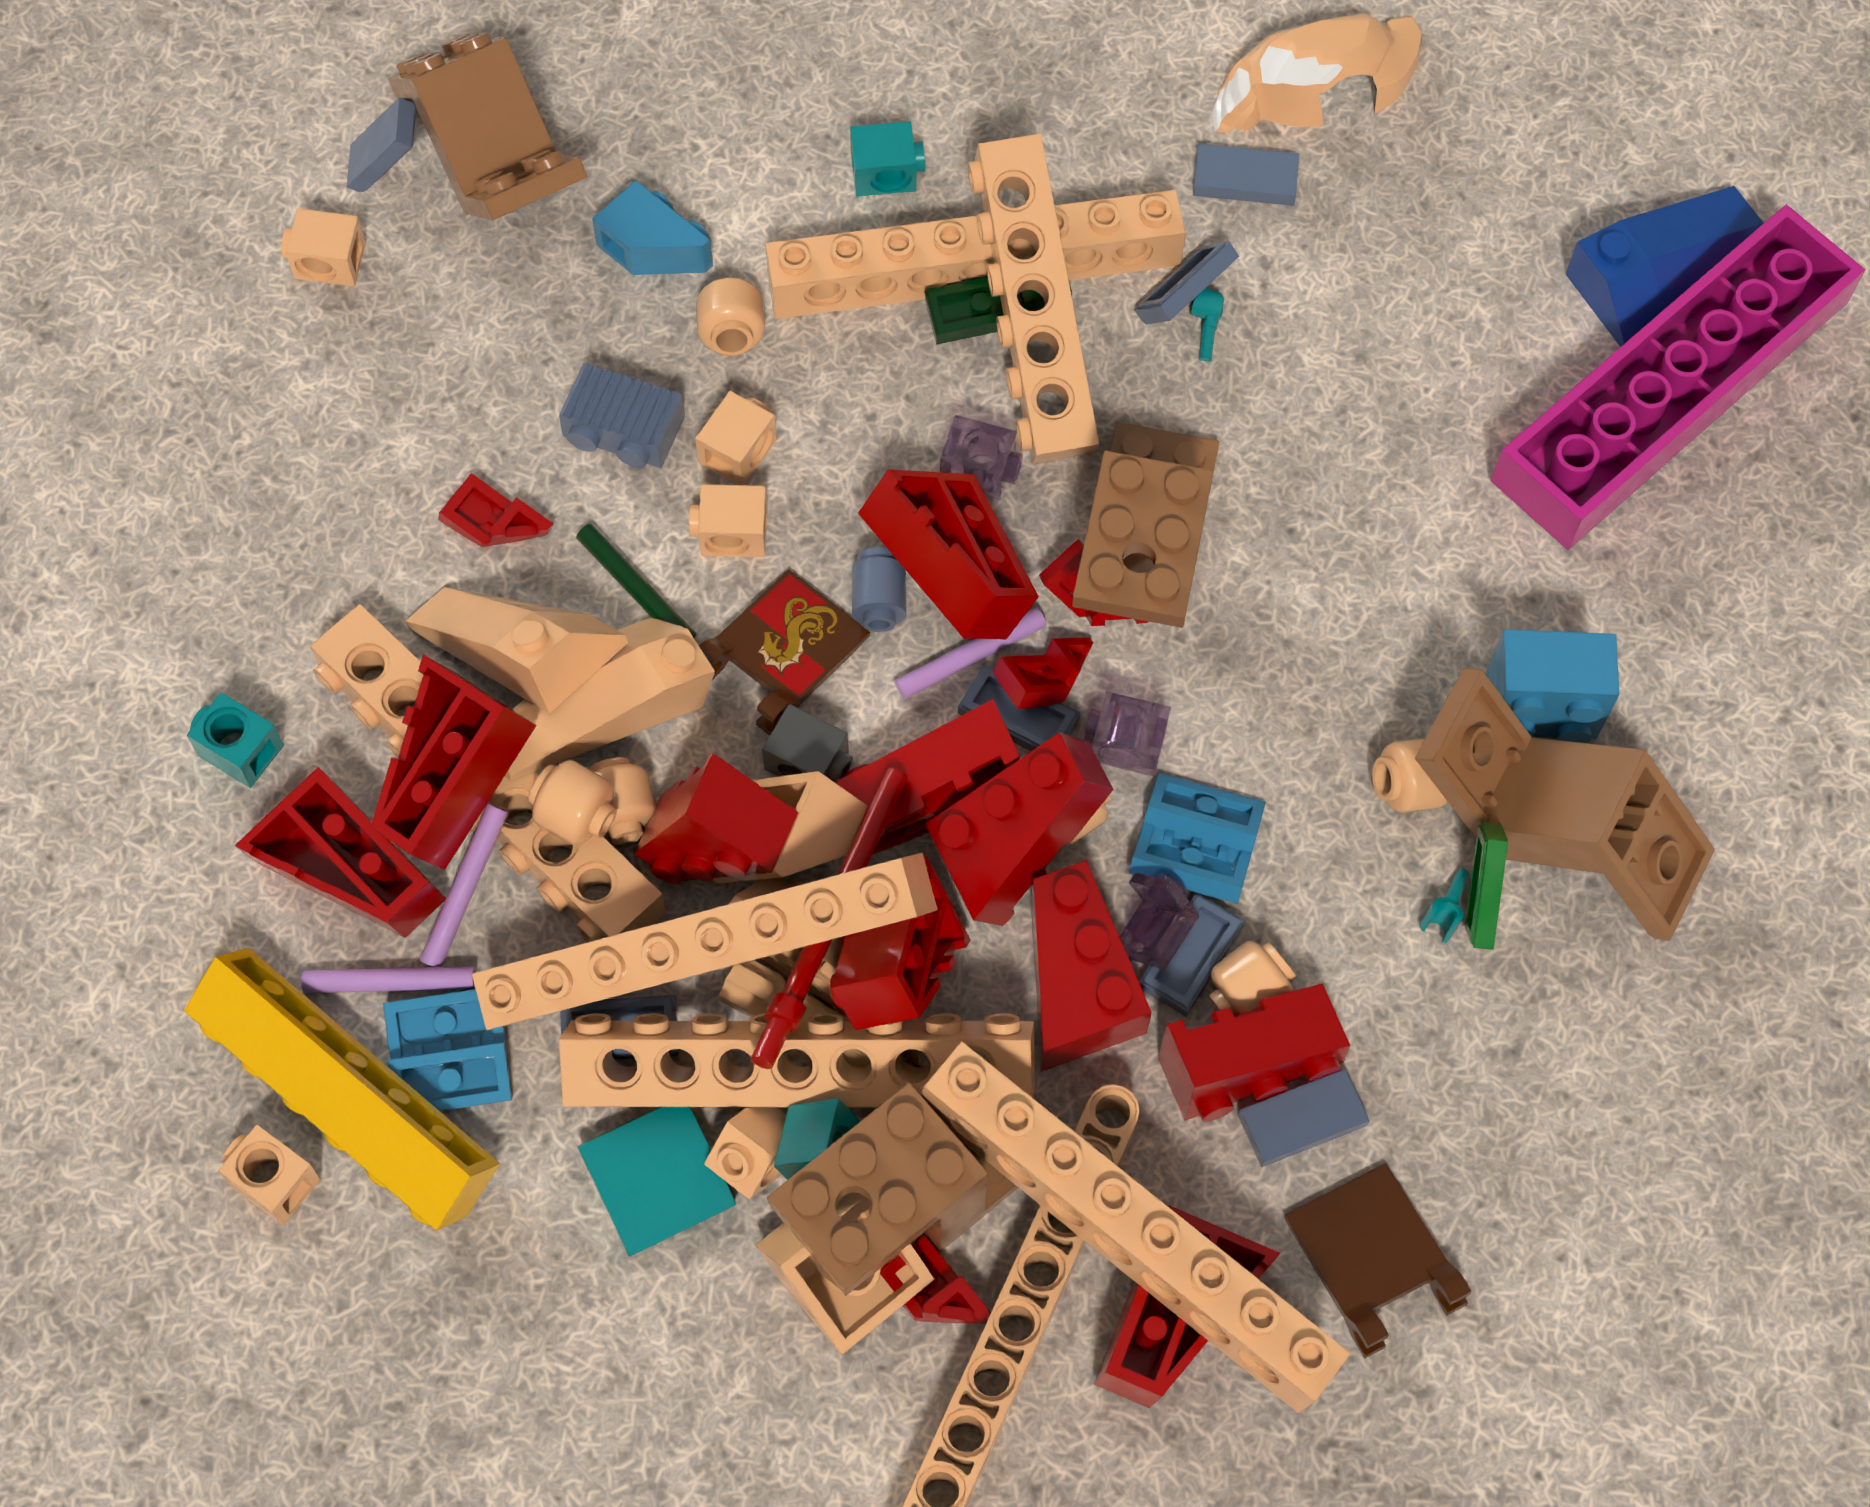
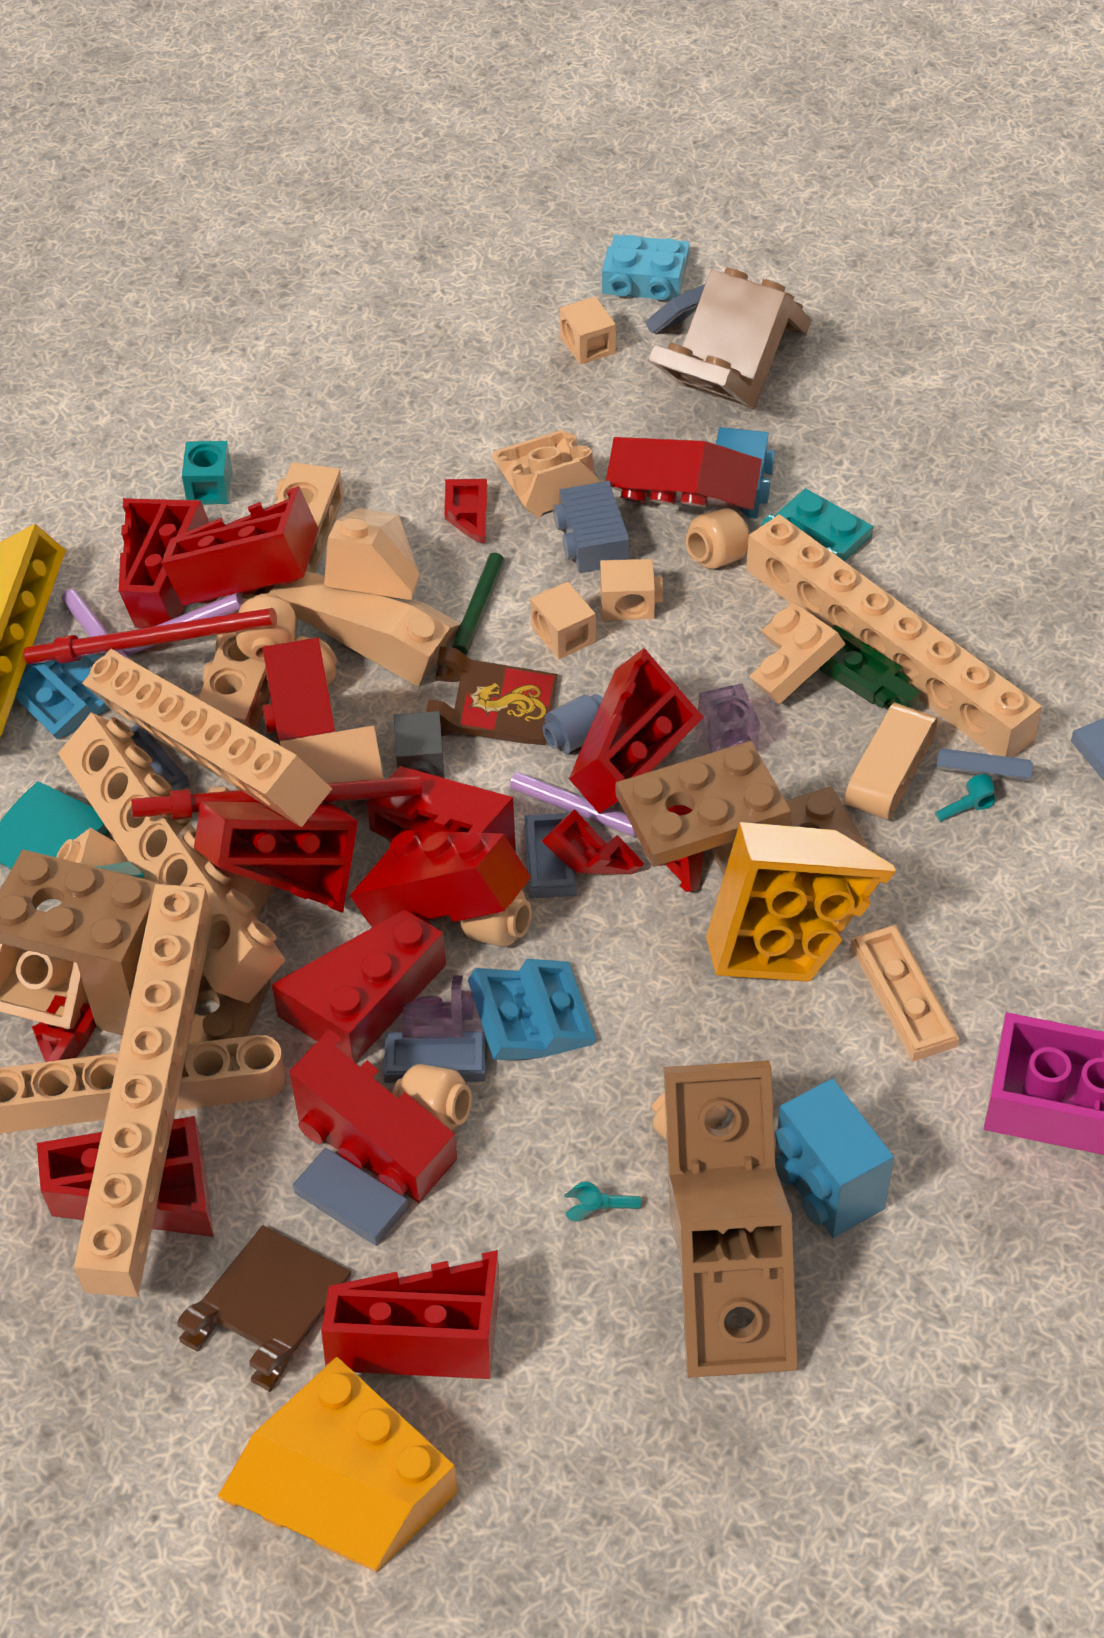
camera: 60 degrees right, 15 degrees down
(265, 134) = (645, 267): none -> medium azure plate
(426, 1017) = (71, 648): none -> red bar
(500, 408) = (544, 466): none -> light nougat slope
(636, 295) = (682, 471): none -> red wedge
(769, 215) = (826, 523): none -> teal plate
(885, 158) = (918, 551): teal brick -> none
(947, 337) = (803, 648): none -> light nougat plate
(1023, 166) = (893, 660): light nougat brick -> none
(1127, 353) = (890, 760): none -> light nougat beam
(1128, 733) = (579, 921): clear purple brick -> none
(1267, 542) = (789, 900): none -> light orange wedge
(1383, 516) = (904, 993): none -> light nougat tile
(1486, 885) = (619, 1201): green tile -> none
(1501, 1128) = (418, 1322): none -> red wedge
(1603, 1280) = (342, 1470): none -> light orange wedge

